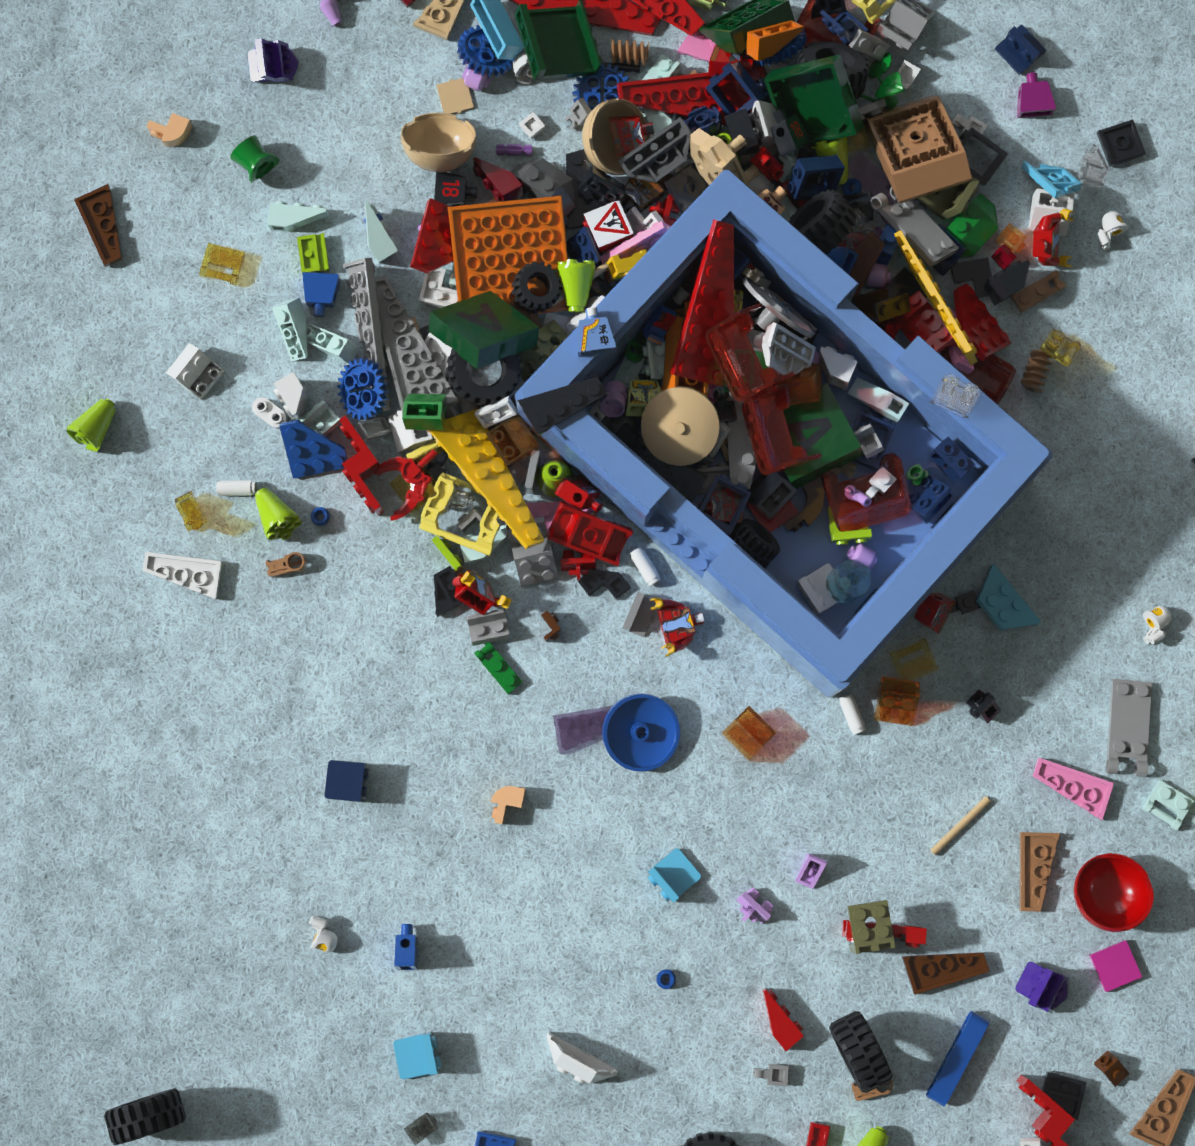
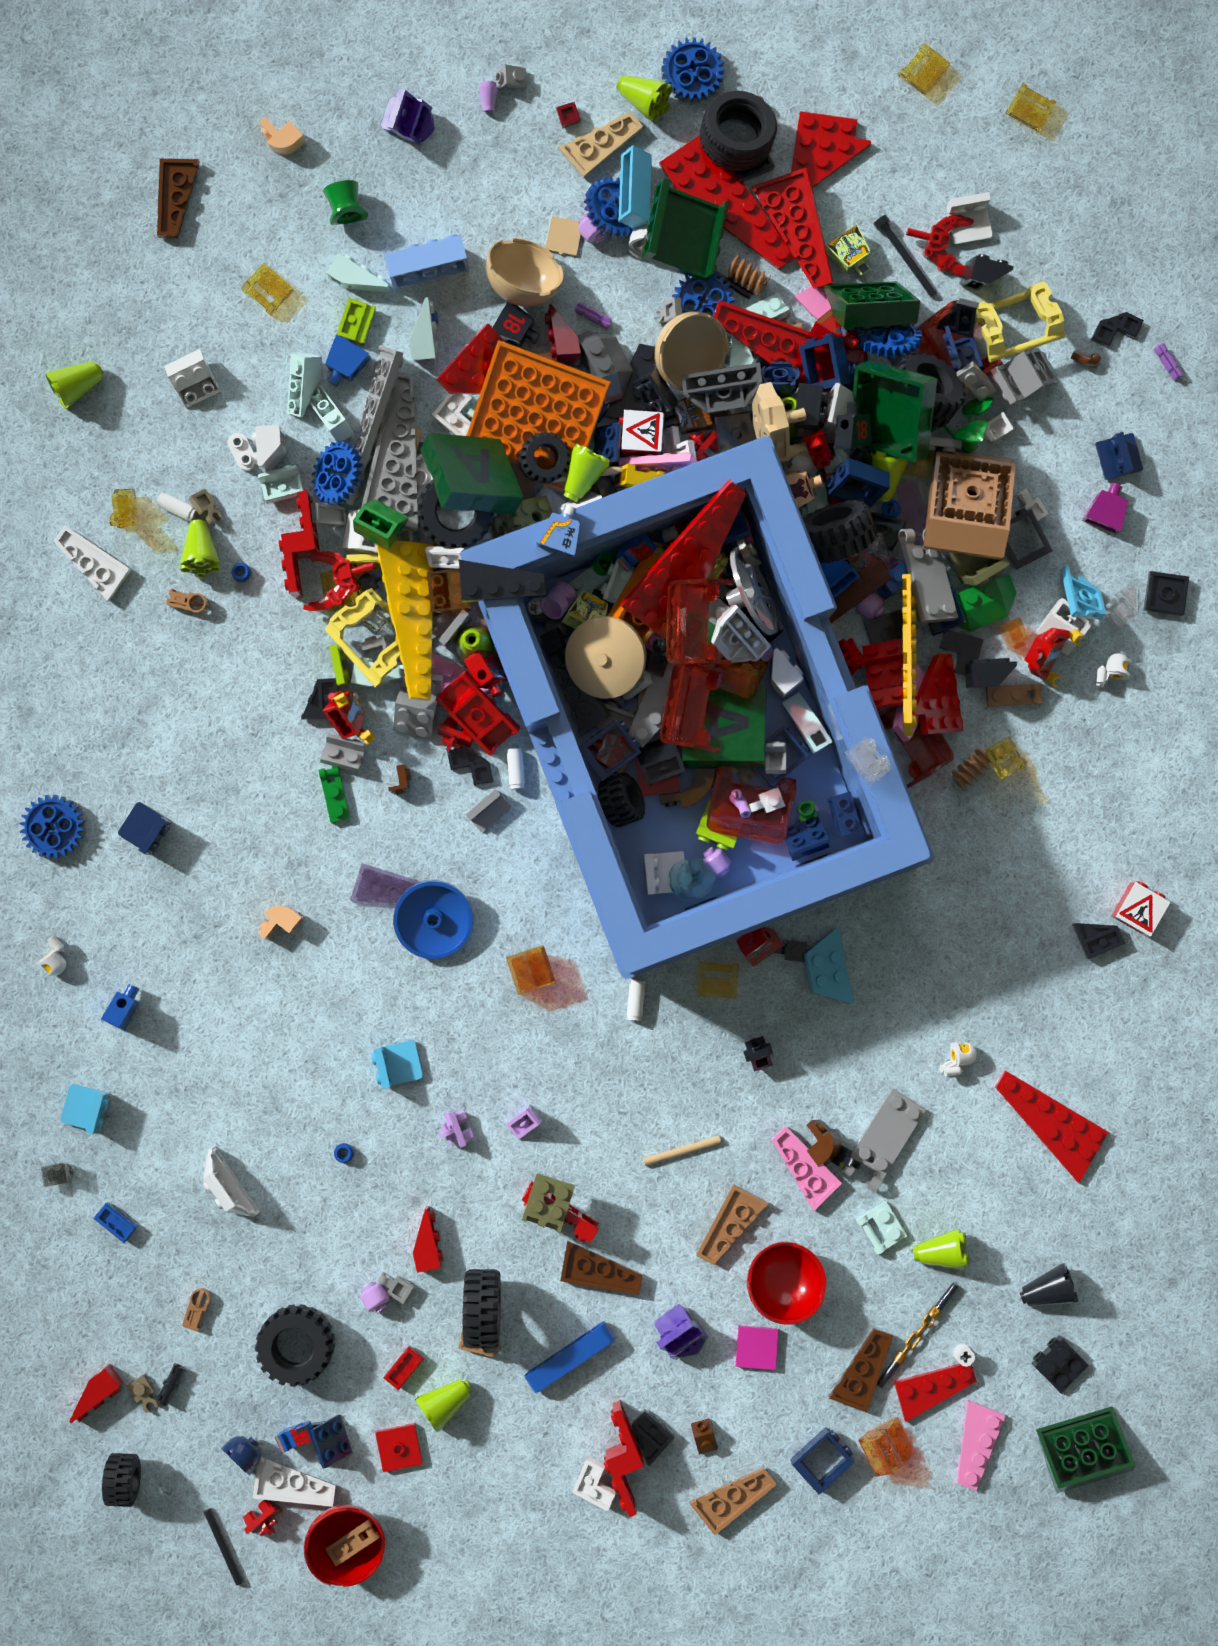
camera: 25 degrees right, 5 degrees up
(247, 817) = (38, 815): none -> blue gear
(259, 473) = (205, 505): none -> dark tan plate
(310, 450) = (260, 505): blue plate -> none
(350, 173) = (427, 261): none -> light blue brick
(532, 125) = (621, 300): white plate -> none
(628, 133) = (705, 353): torso -> none
(676, 623) = (516, 836): torso -> none
(759, 1093) = (375, 1297): none -> lavender head
(770, 39) = (883, 330): orange slope -> none
(880, 307) = (854, 635): dark brown panel -> none
(897, 701) = (683, 1008): clear orange slope -> none
(1003, 256) = (998, 646): dark red plate -> none
(1085, 755) = (828, 1143): none -> reddish brown brick
(1100, 759) = (844, 1158): none -> black plate

